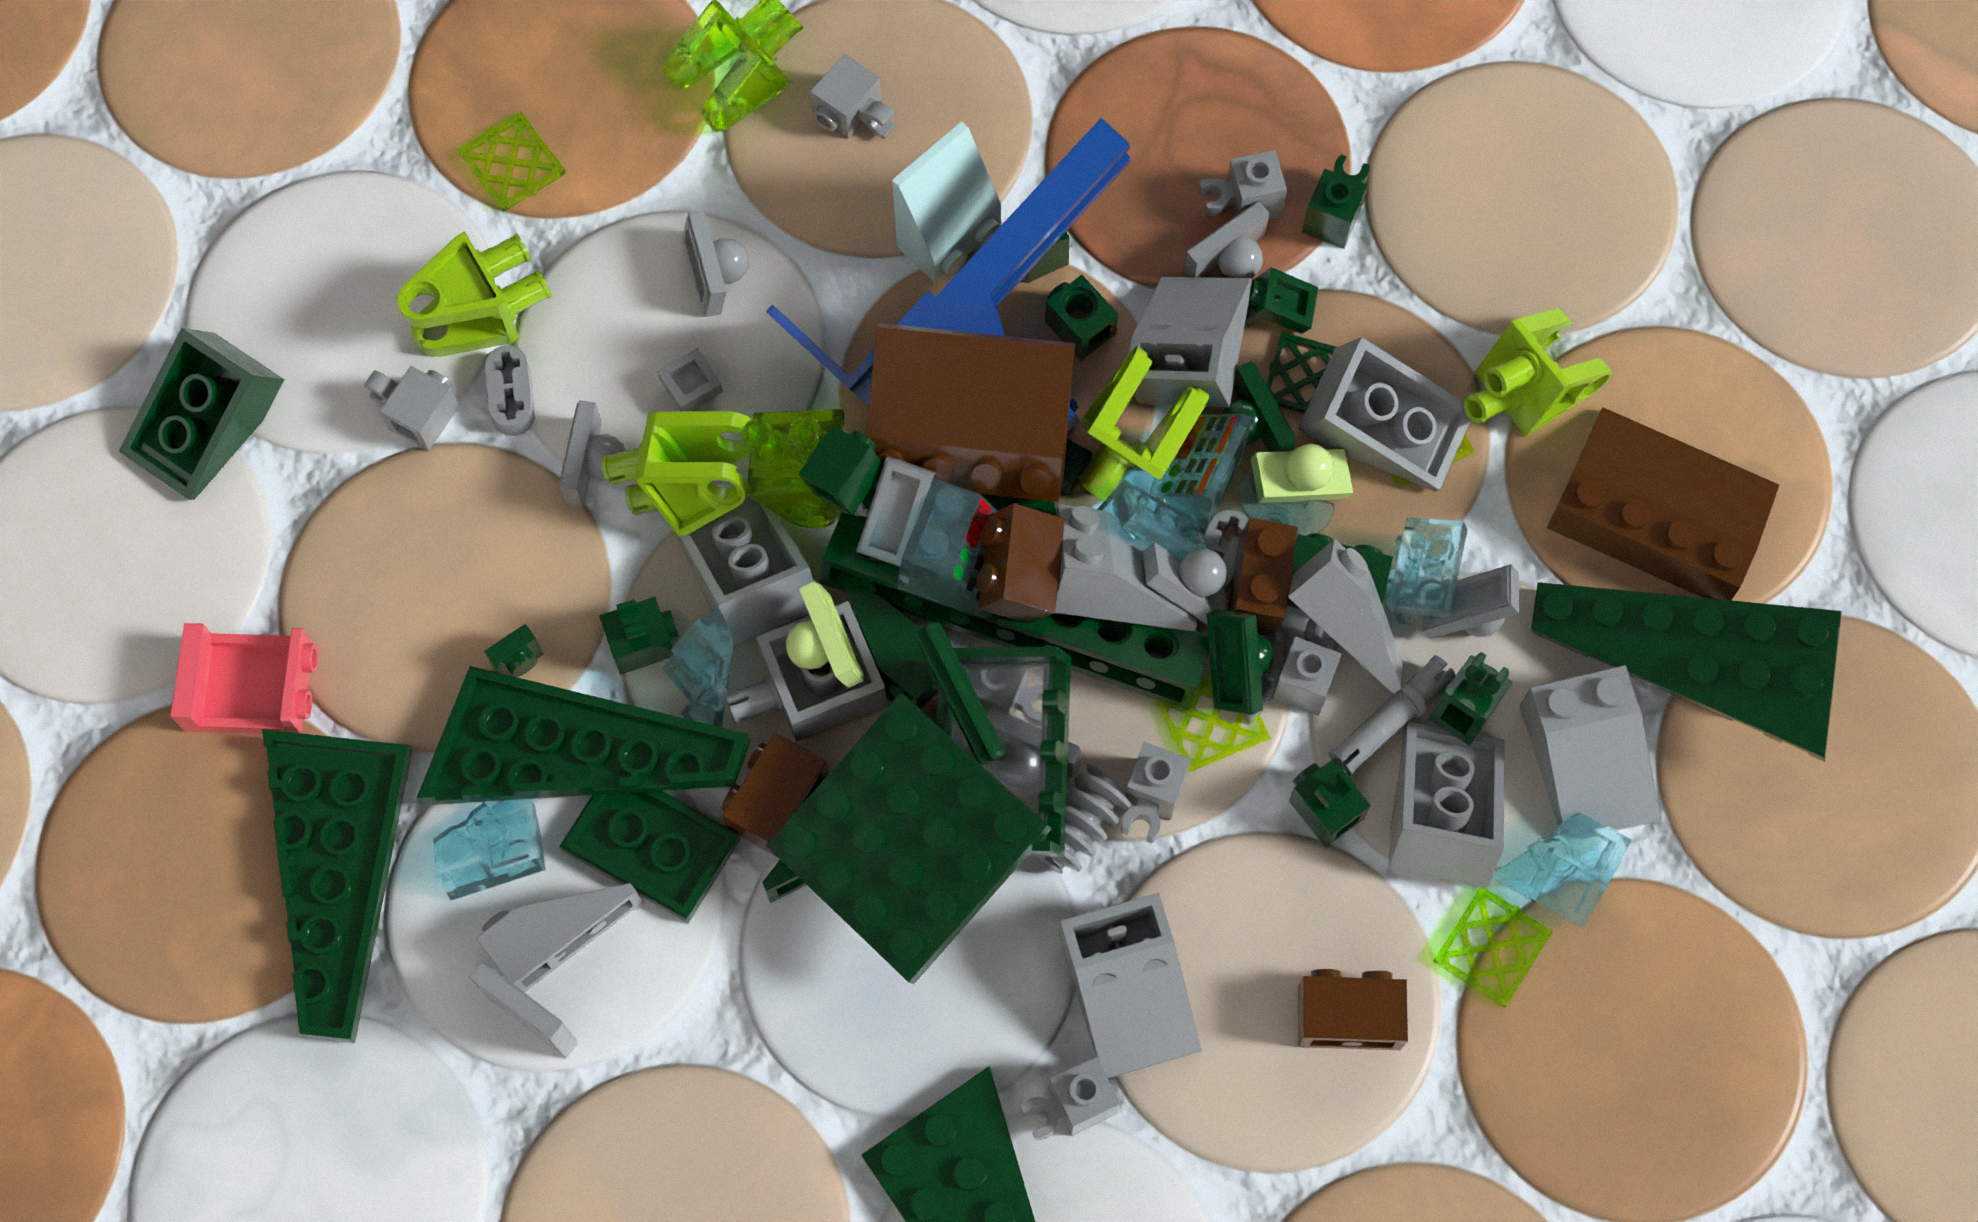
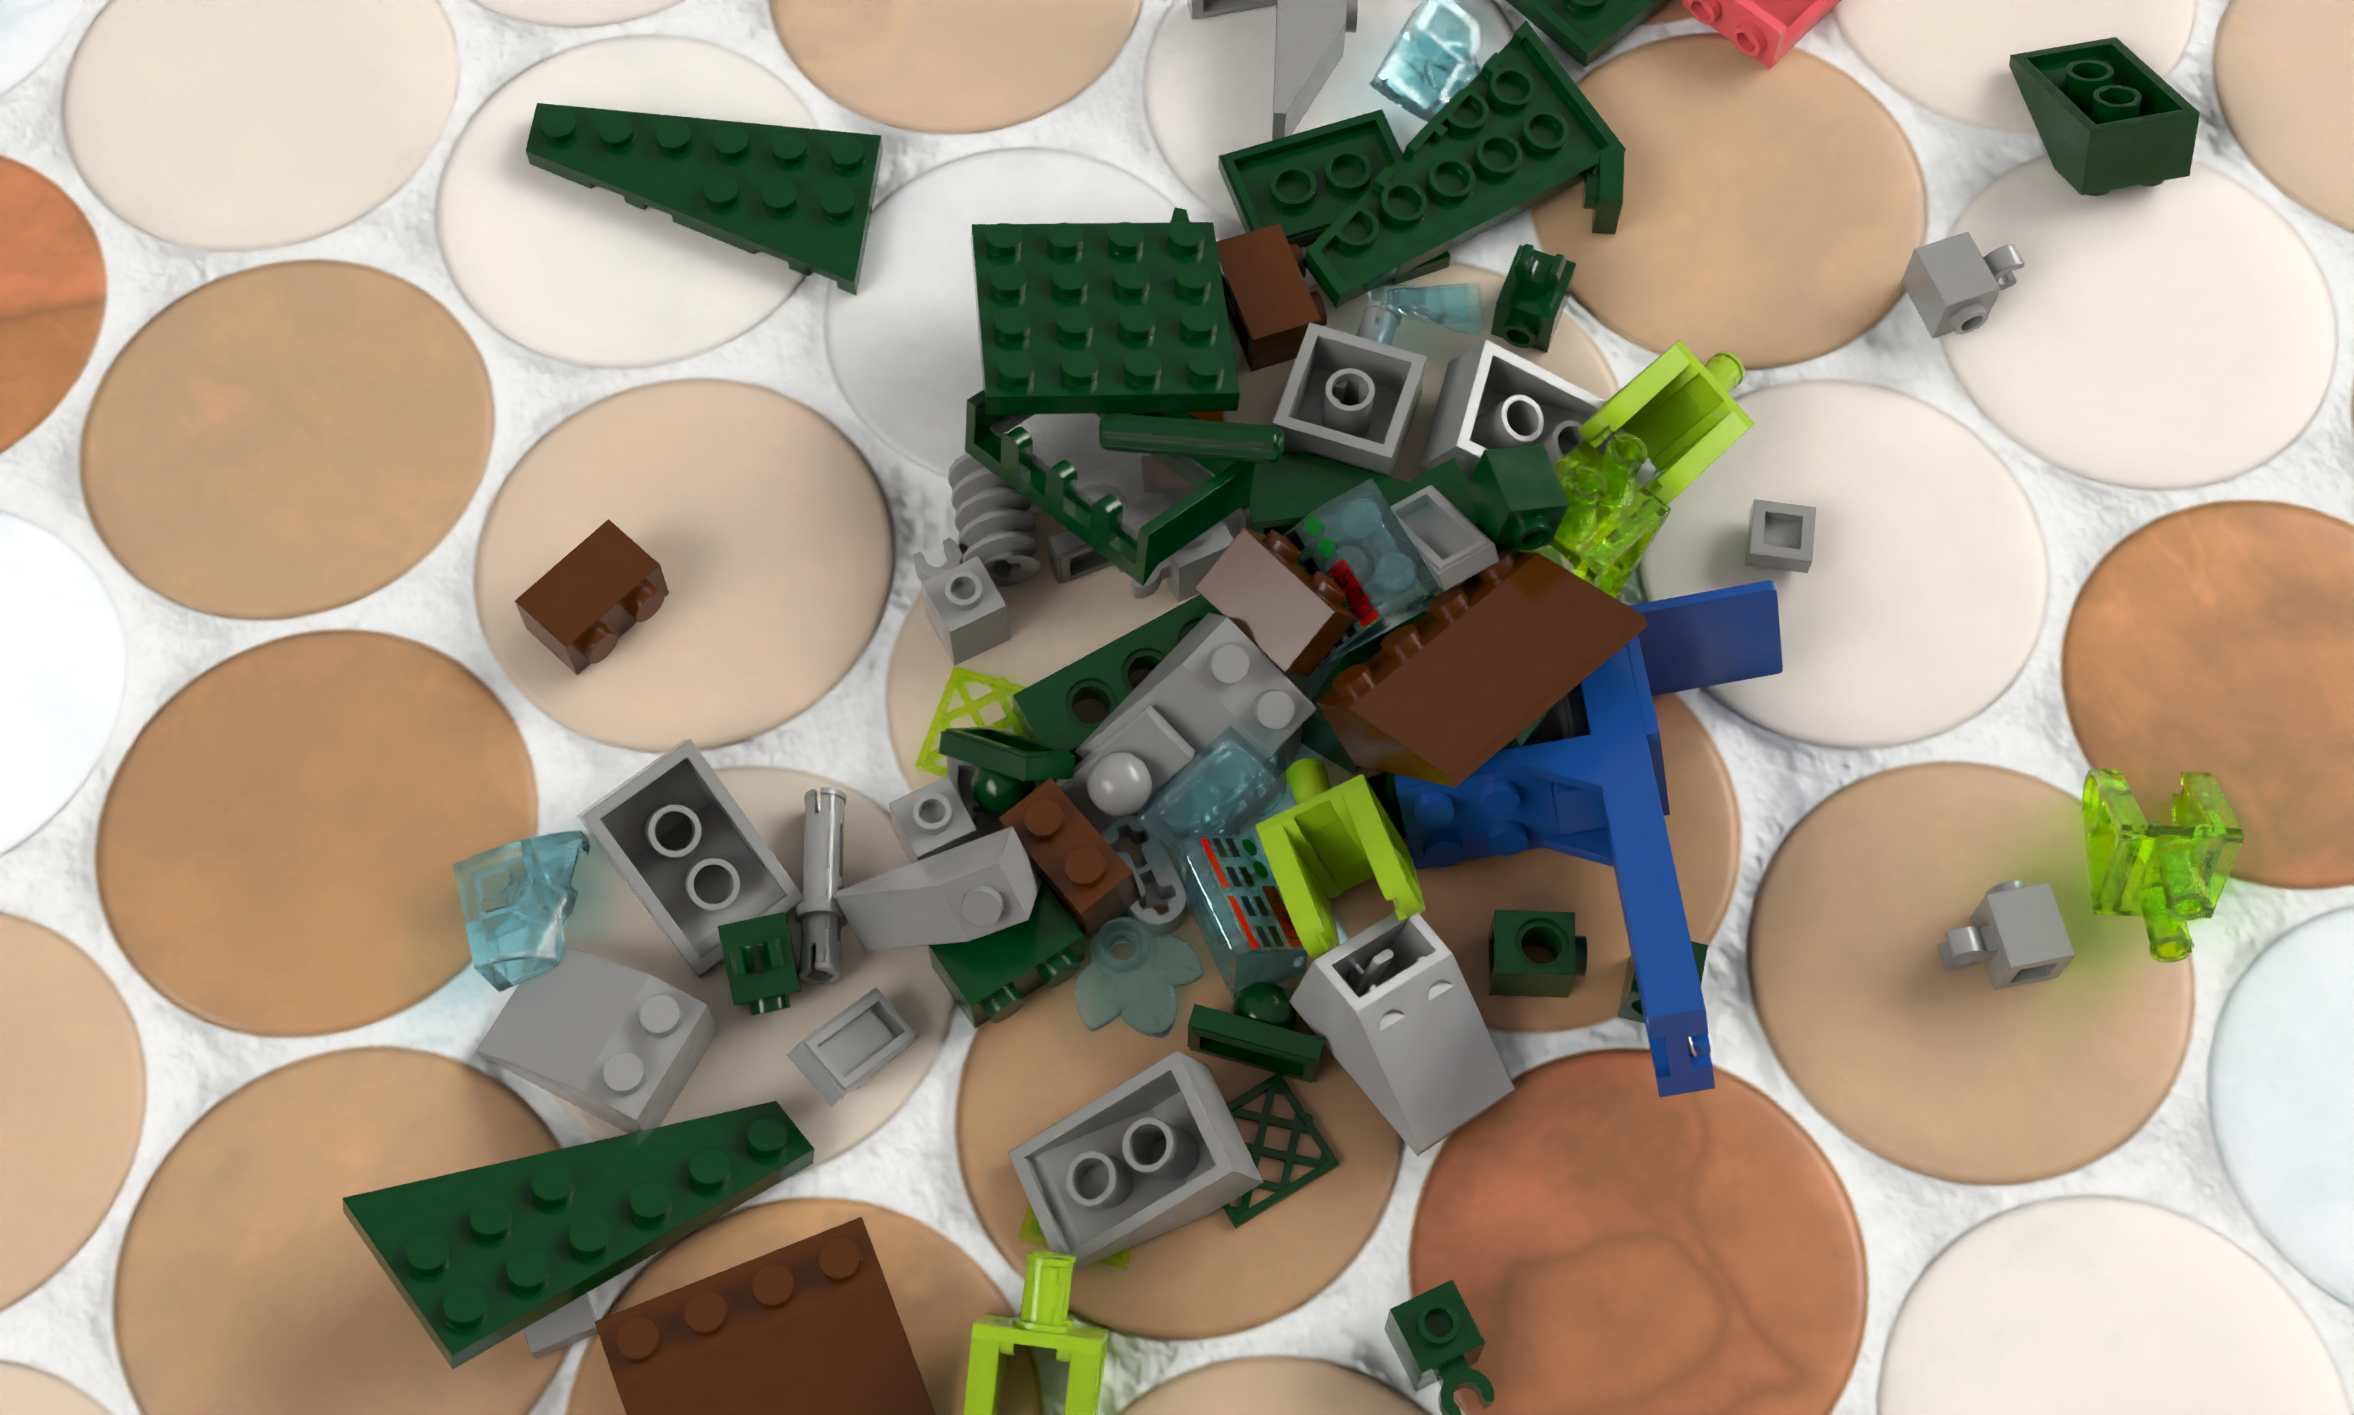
camera: 130 degrees right, 5 degrees down
(467, 298) = (2048, 393): lime piece -> none
(493, 136) = (2200, 608): clear neon green window -> none
(499, 391) = (1910, 381): light grey beam -> none
(585, 453) = (1776, 387): light grey tile -> none
(712, 262) = (1909, 650): light grey tile -> none
(823, 639) = (1362, 392): yellowish green tile -> none
(945, 205) = (1774, 893): light aqua slope -> none
(1079, 1098) = (751, 318): light grey brick -> none
(1130, 985) = (811, 436): light grey slope -> none
(1231, 247) = (1481, 1181): light grey tile -> none
(1248, 181) = (1539, 1262): light grey brick -> none
(1282, 301) = (1371, 1179): dark green bracket -> none
(1301, 475) = (1150, 1015): yellowish green tile -> none
(1328, 801) = (797, 744): dark green brick -> none
(1426, 568) = (929, 1033): clear light blue bracket -> none
(1512, 914) = (518, 741): clear neon green window -> none

